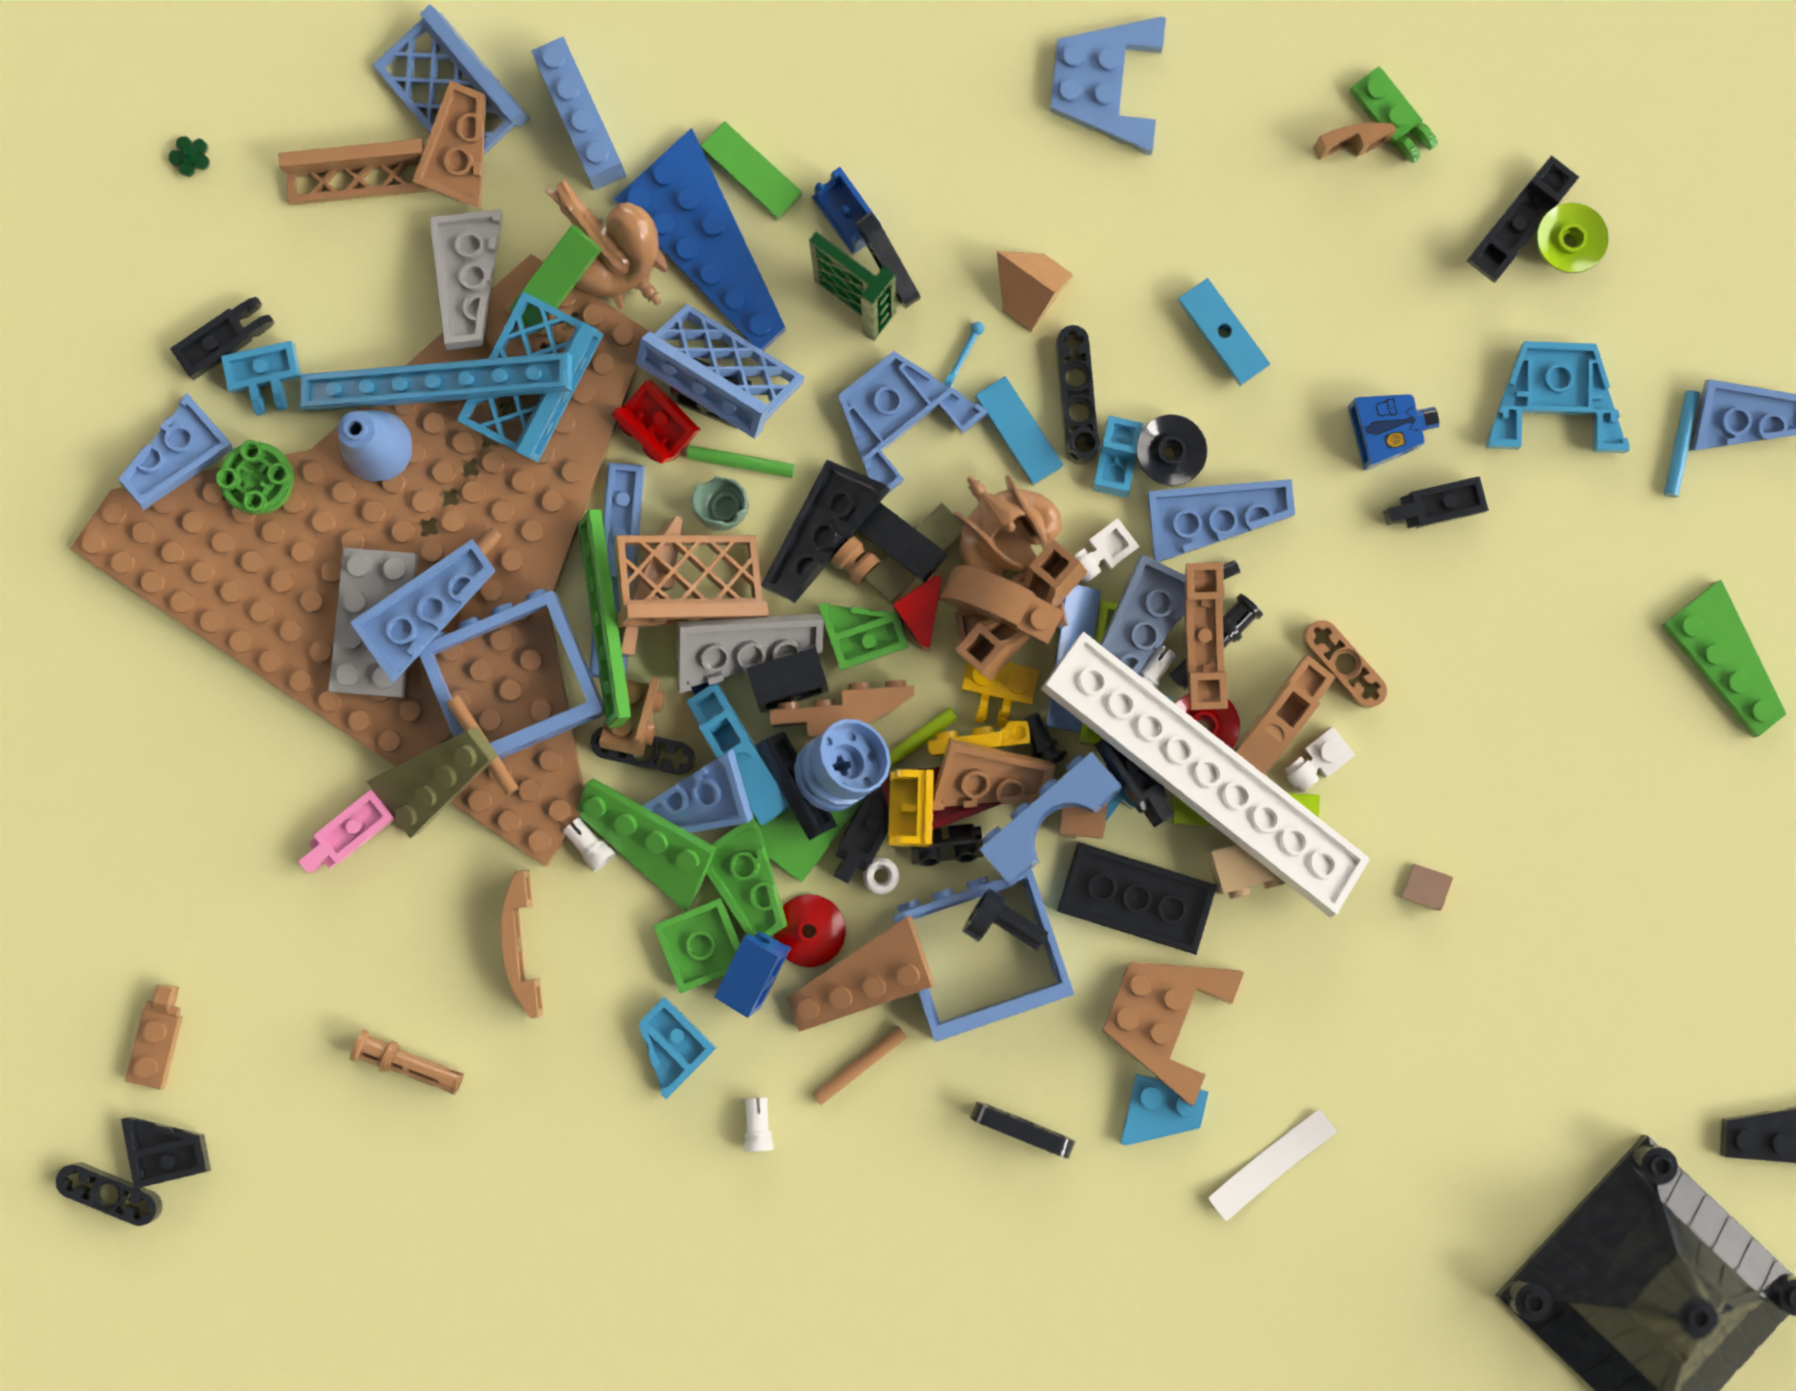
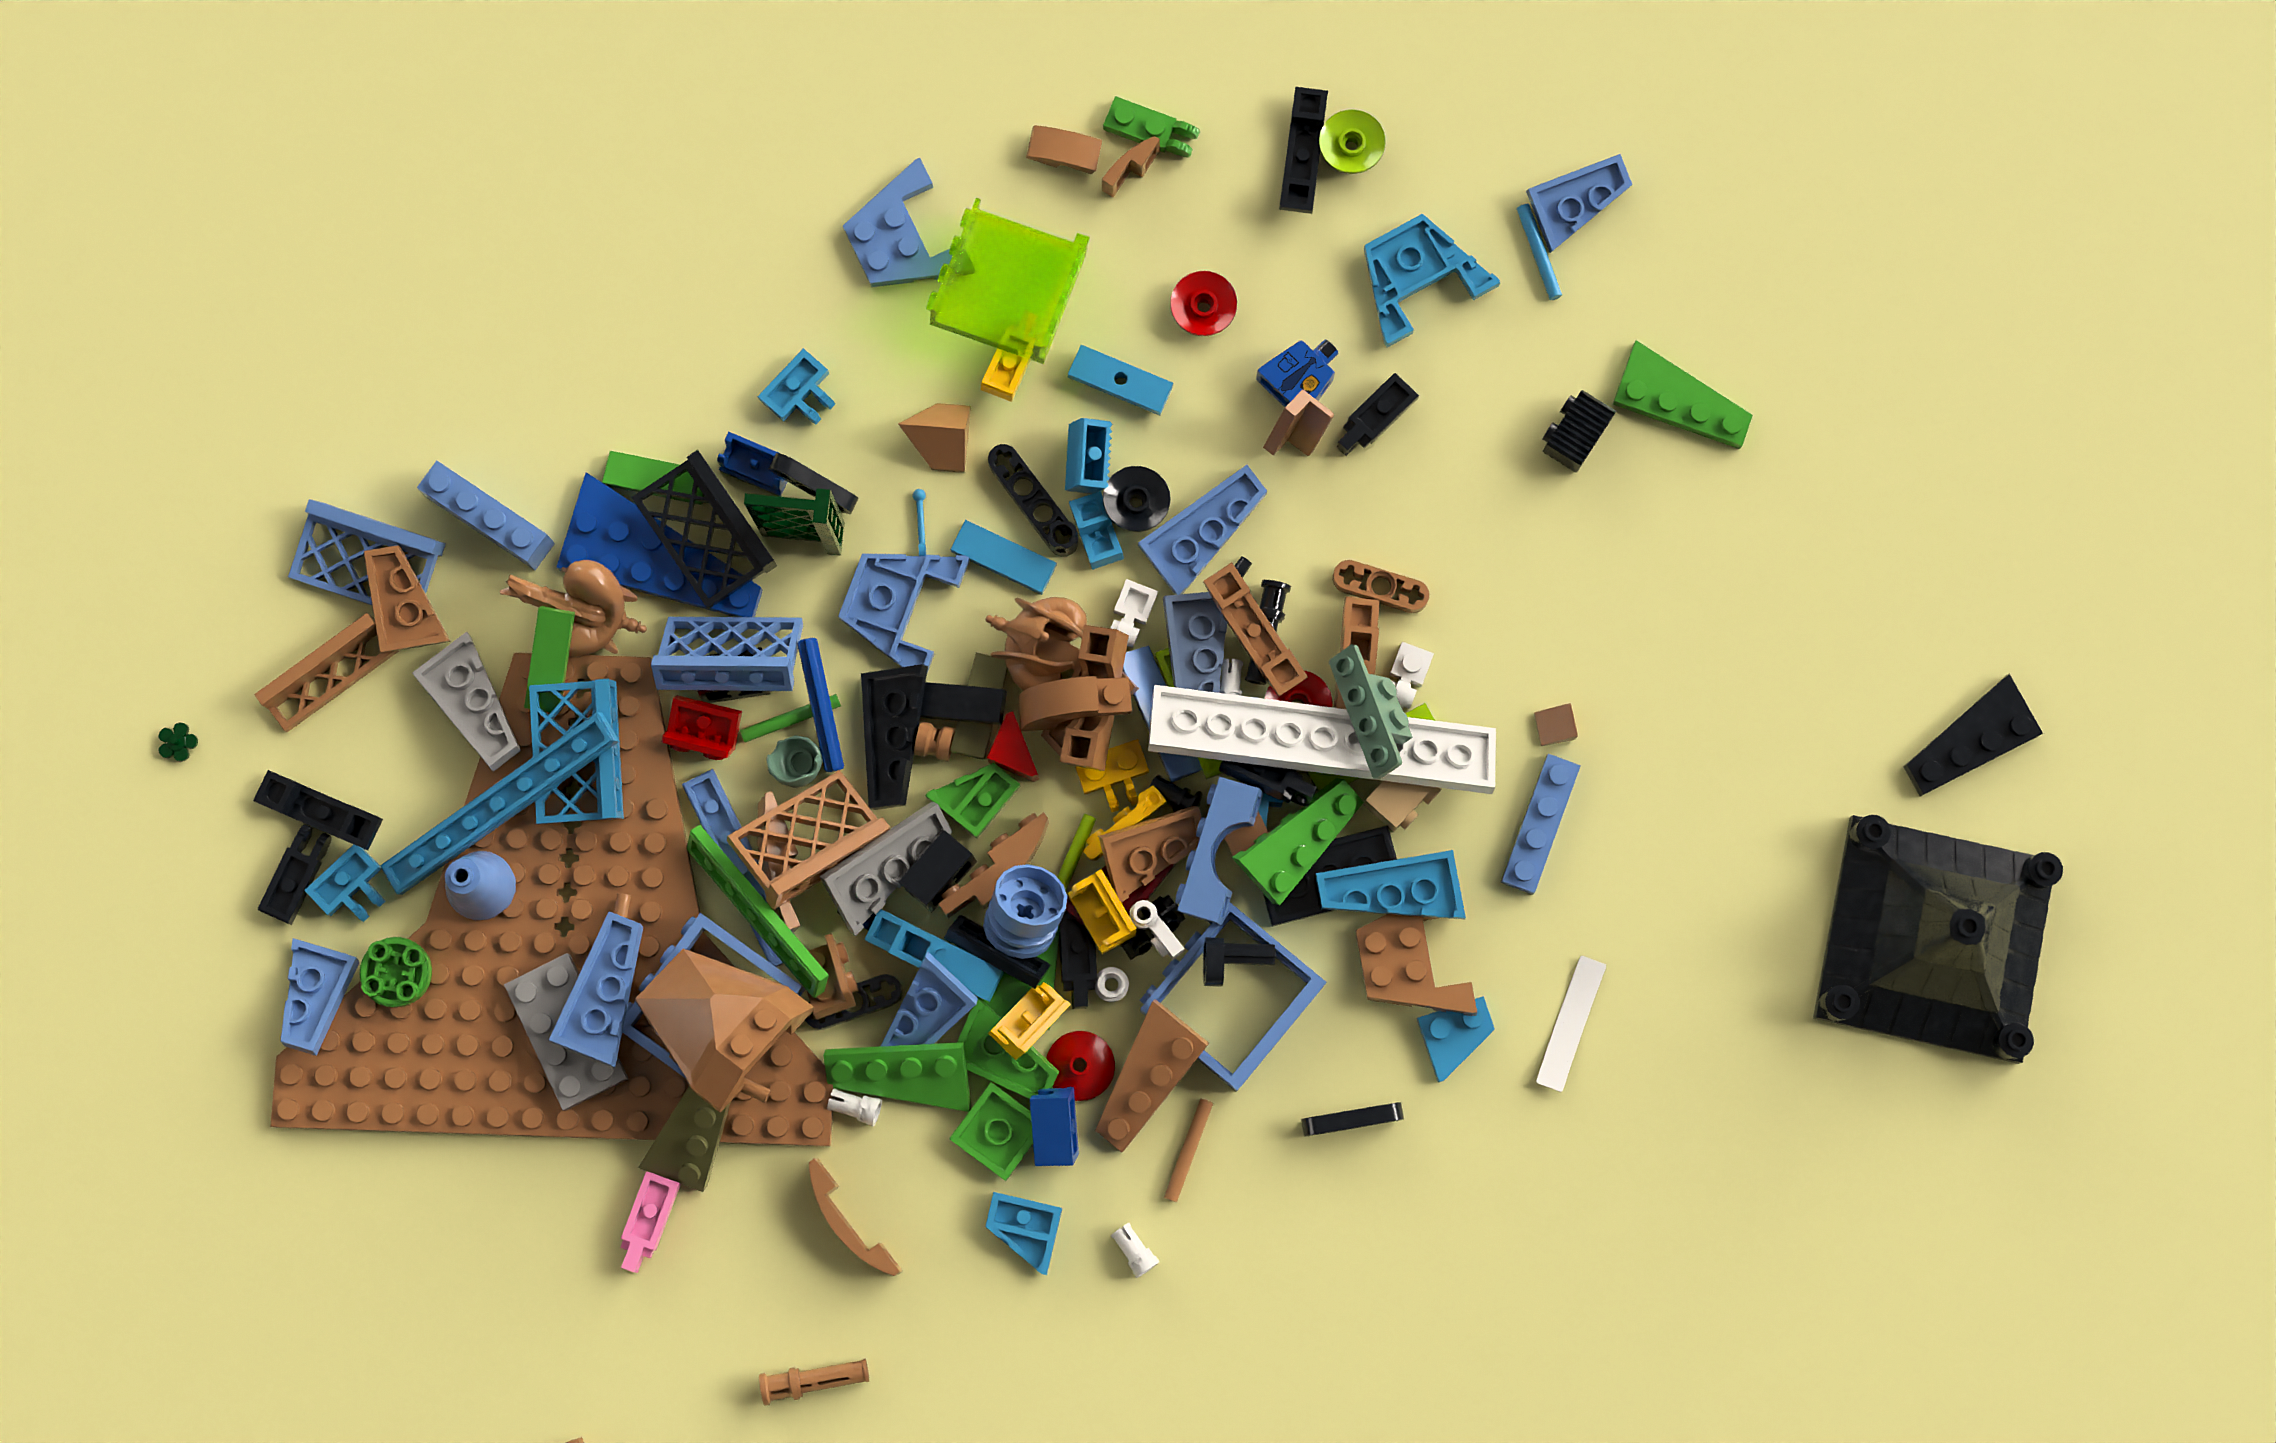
camera: 30 degrees left, 5 degrees down
(275, 291) = (318, 810): none -> black slope
(507, 698) = (718, 1021): none -> medium nougat wedge
(773, 465) = (820, 704): none -> blue axle
(786, 864) = (1028, 1020): none -> yellow hinge
(795, 243) = (728, 513): none -> black fence
(926, 160) = (794, 386): none -> dark azure hinge
(951, 867) = (1164, 939): none -> white plate
(1116, 855) = (1290, 850): none -> bright green wing
(1136, 253) = (1004, 374): none -> yellow hinge
(1151, 384) = (1088, 455): none -> dark azure brick
(1173, 181) = (1006, 284): none -> clear neon green panel
(1194, 949) = (1404, 886): none -> dark azure wing
(1267, 776) = (1372, 710): none -> sand green bracket
(1303, 86) = (1064, 148): none -> medium nougat slope
(1351, 292) = (1203, 288): none -> red dish
(1356, 968) = (1540, 824): none -> medium blue plate
(1363, 472) = (1300, 424): none -> medium nougat panel
(1616, 631) = (1578, 431): none -> black brick

